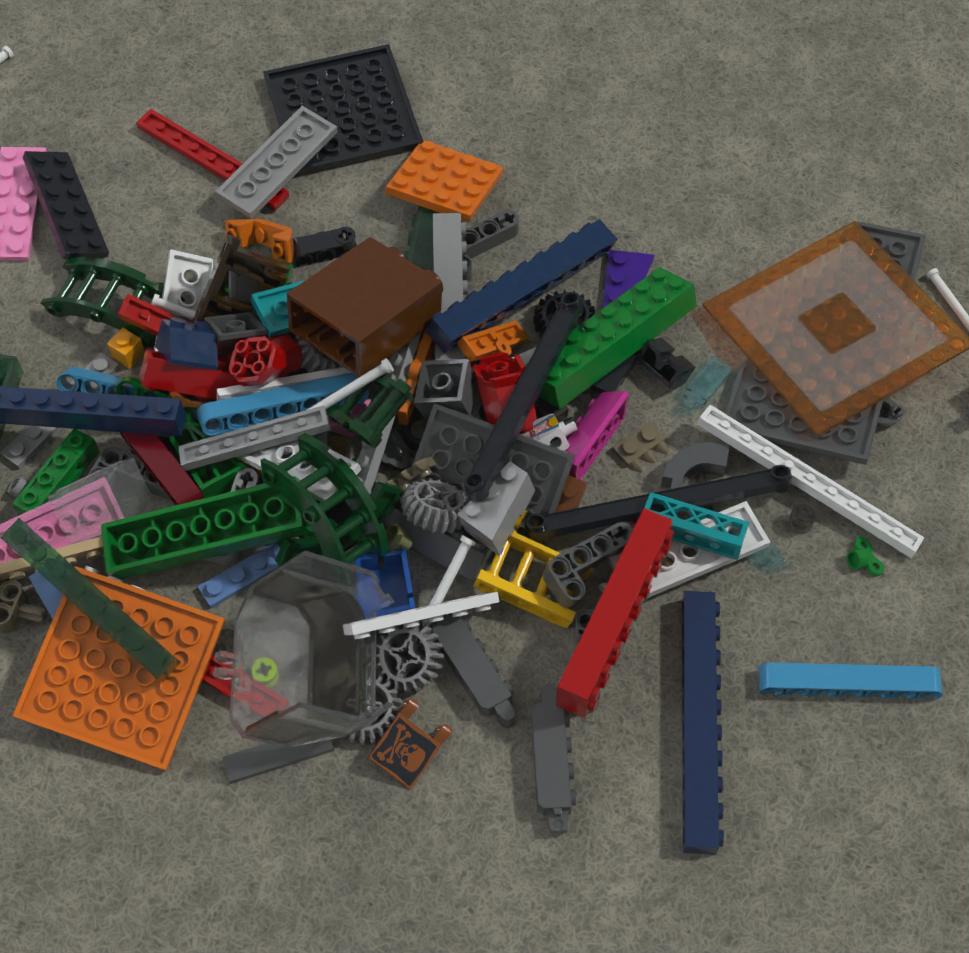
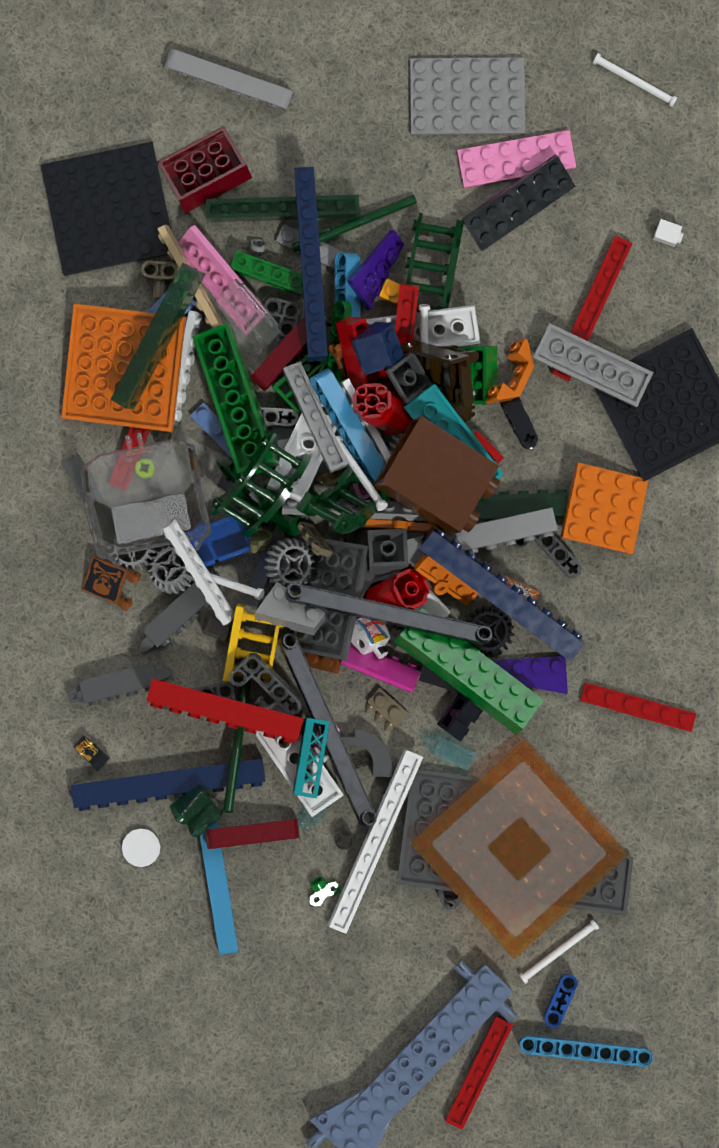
camera: 80 degrees right, 25 degrees up
(27, 364) = (362, 220): none -> dark green piece
(92, 356) = (375, 269): none -> dark purple wing
(150, 76) = (668, 233): none -> white brick
(501, 621) = (215, 629): none -> clear smoke brick
(643, 813) = (91, 753): none -> black leg
(680, 193) = (638, 707): none -> red plate
(683, 621) = (235, 755): none -> dark green piece
(744, 680) = (197, 810): none -> clear green piece
(783, 622) = (252, 833): none -> dark red beam
(783, 774) = (141, 847): none -> white tile

